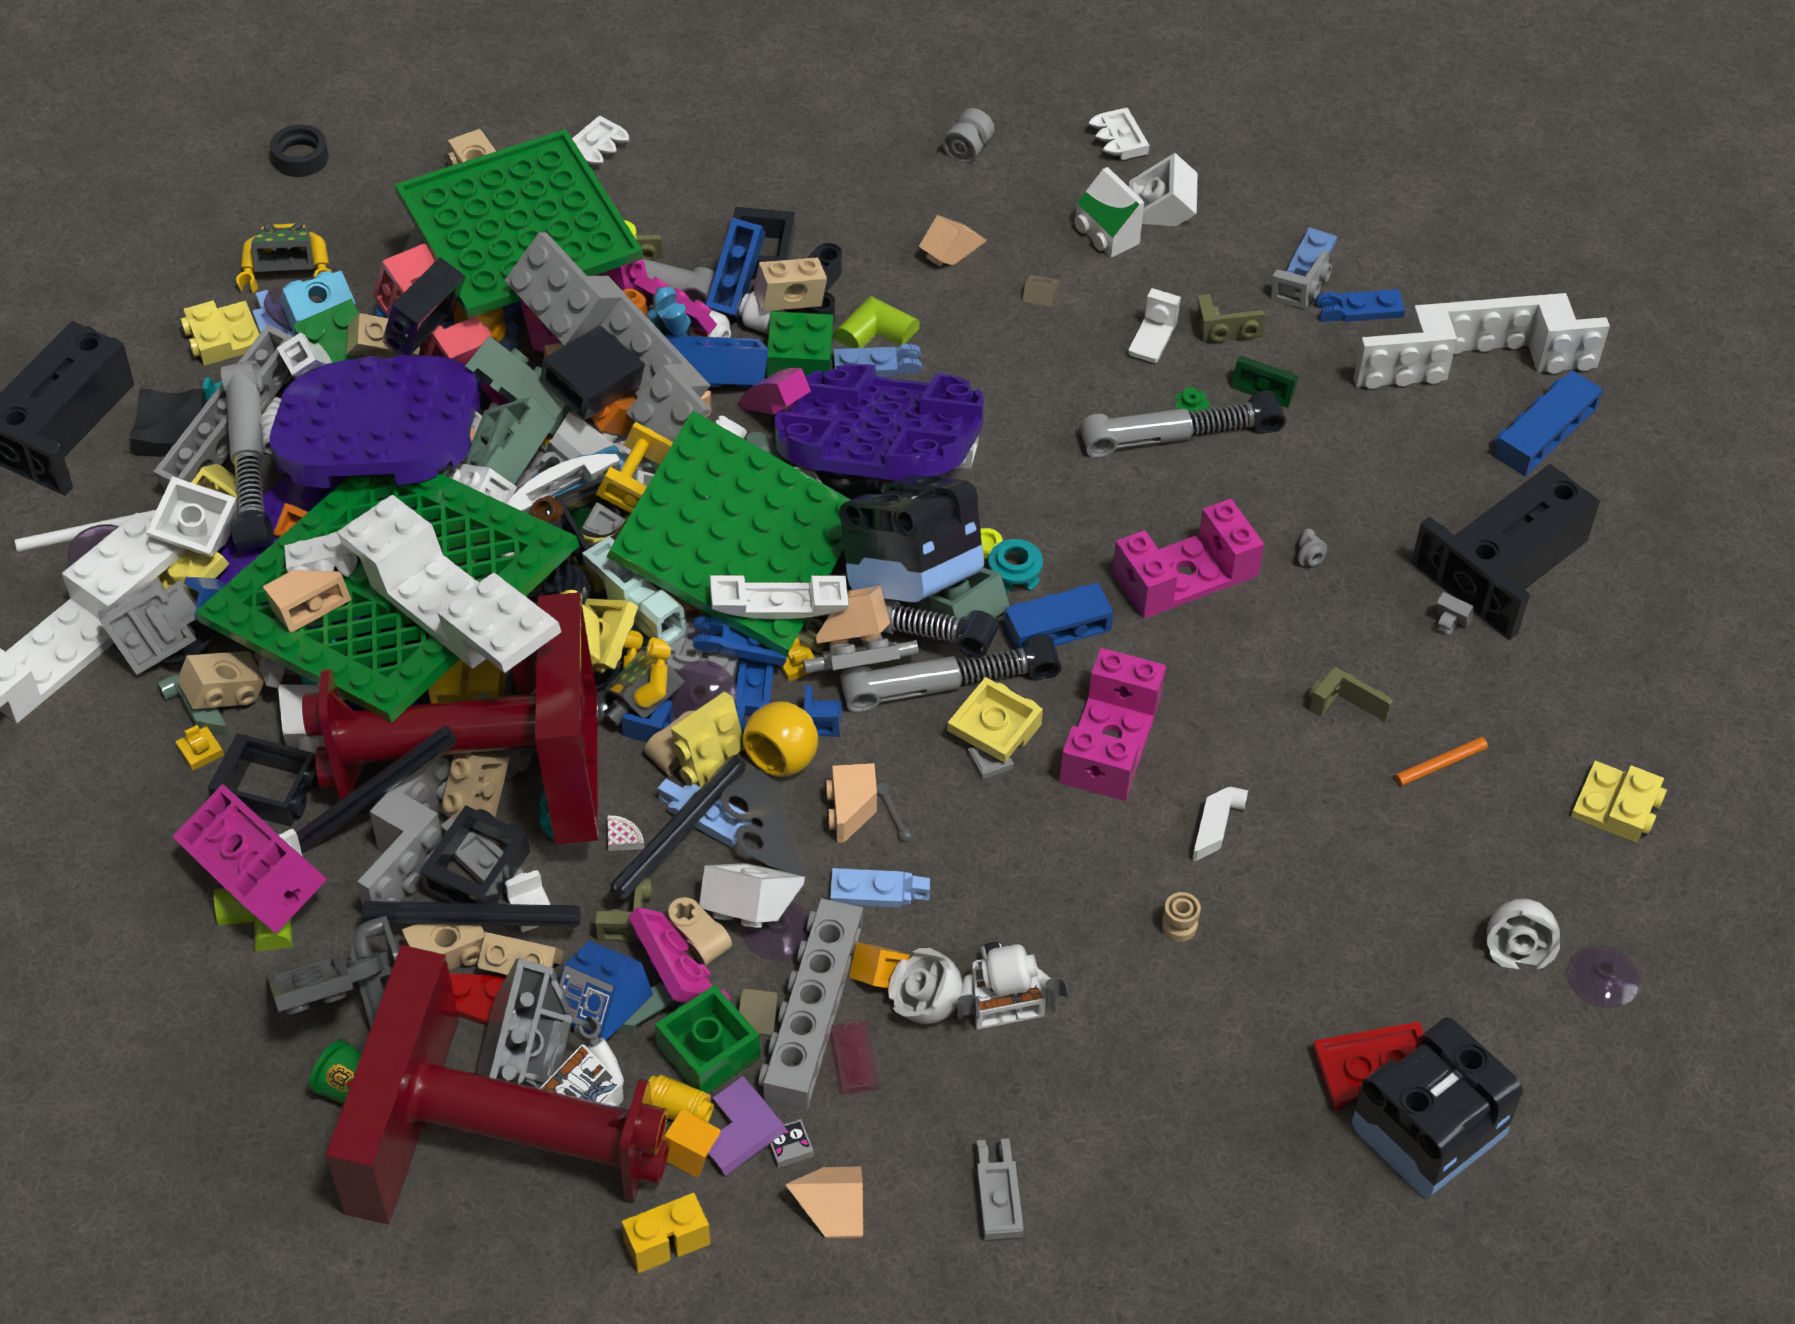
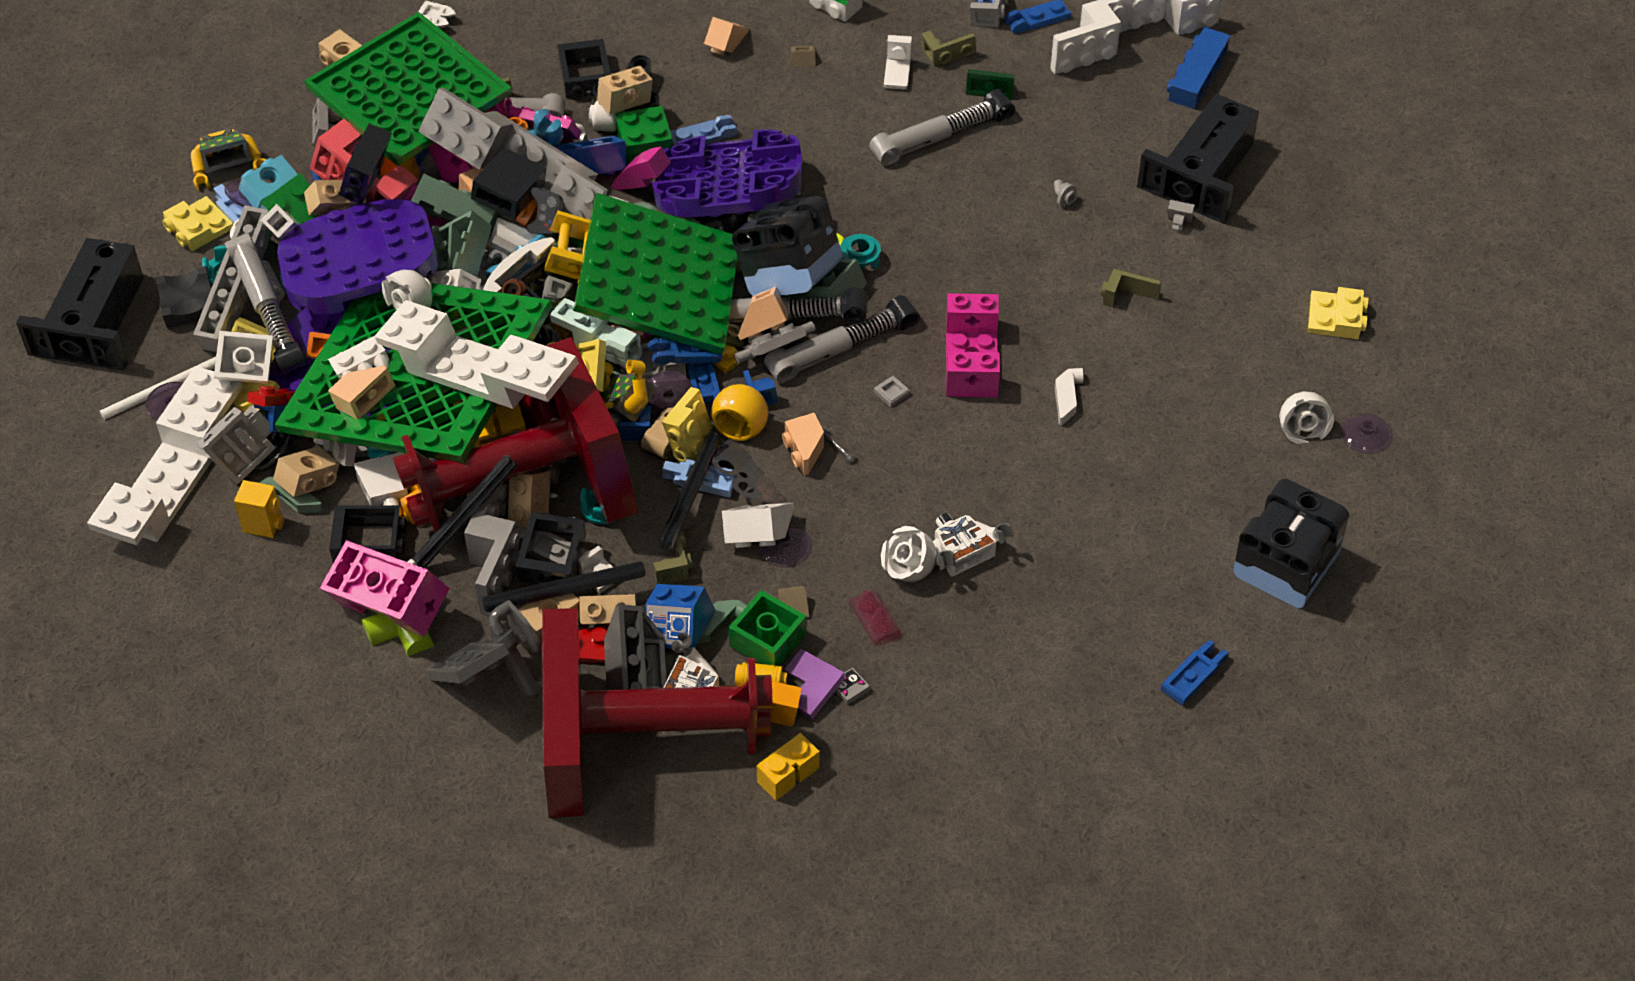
camera: 15 degrees left, 0 degrees up
(144, 714) = (258, 509): none -> yellow piece
(199, 747) = (306, 524): yellow tile -> none
(205, 574) = (269, 396): none -> red plate
(302, 165) = (203, 88): black tyre -> none
(335, 1070) = (516, 722): green hat -> none
(409, 481) = (407, 286): none -> white cylinder
(623, 834) = (649, 508): white tile -> none
(630, 410) = (548, 206): none -> black piece
(666, 947) = (716, 579): dark pink wing -> none
(703, 935) = (730, 563): tan piece -> none
(735, 267) = (578, 86): blue brick -> none
(778, 600) = (708, 313): white slope -> none
(796, 1084) = (831, 587): light grey brick -> none
(832, 1200) = (898, 714): light nougat slope -> none
(875, 964) = (865, 550): light orange panel -> none
(876, 318) = (693, 102): lime brick -> none
(877, 887) = (845, 498): light blue hinge -> none
(996, 719) = (887, 362): light yellow plate -> none
(999, 1193) = (1009, 679): light grey hinge -> none
(1009, 970) = (966, 527): white head -> none
(1062, 616) = (909, 279): blue brick -> none
(1181, 916) = (1067, 464): tan wheel -> none
(1192, 400) = (941, 108): green plant -> none
(1220, 555) = (1003, 211): dark pink plate -> none
(1247, 1250) = (1193, 673): none -> blue hinge
(1354, 1056) = (1220, 530): red wing -> none
(1441, 761) = (1206, 317): orange bar -> none

